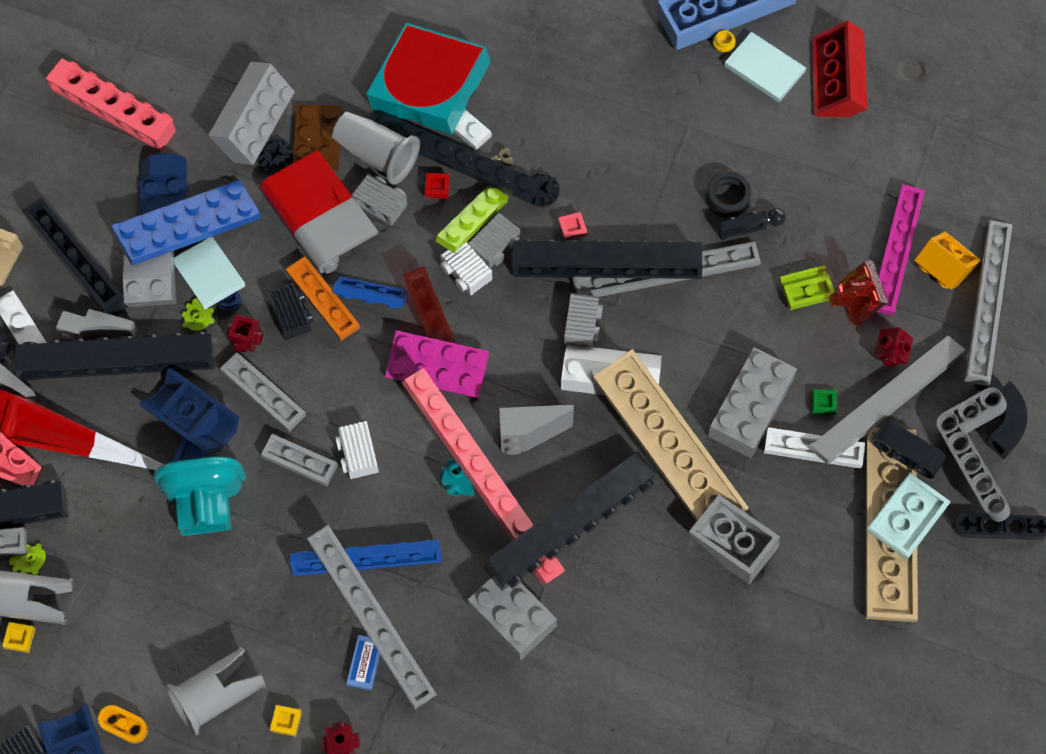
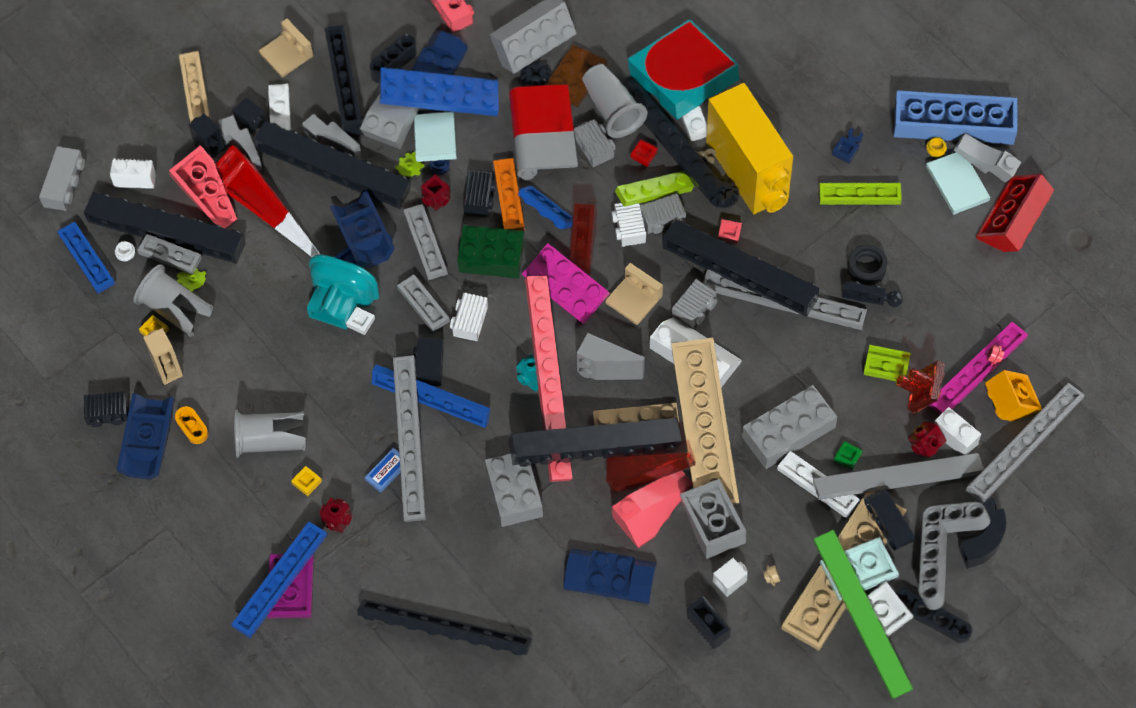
camera: 30 degrees right, 5 degrees down
(50, 665) = (163, 356): none -> tan brick
(112, 199) = (395, 50): none -> black beam
(242, 513) = (360, 320): none -> white plate
(340, 368) = (491, 251): none -> dark green brick
(343, 520) = (429, 361): none -> black brick
(516, 340) = (635, 294): none -> tan bracket
(552, 131) = (749, 149): none -> yellow brick
(589, 471) = (635, 414): none -> tan plate
(629, 528) = (638, 470): none -> clear red slope
(638, 82) = (847, 147): none -> dark blue plate
(662, 561) = (648, 508): none -> coral wedge
(663, 653) = (609, 575): none -> dark blue piece
(678, 124) = (860, 193): none -> lime plate
(782, 29) = (987, 158): none -> light grey slope
(786, 591) = (730, 576): none -> white brick
(795, 652) = (708, 622): none -> black brick
(824, 567) = (772, 575): none -> tan plate
(908, 226) = (995, 354): none -> coral plate
(919, 323) = (958, 432): none -> white brick
(941, 562) = (862, 614): none -> bright green tile
(954, 549) = (889, 608): none -> white tile

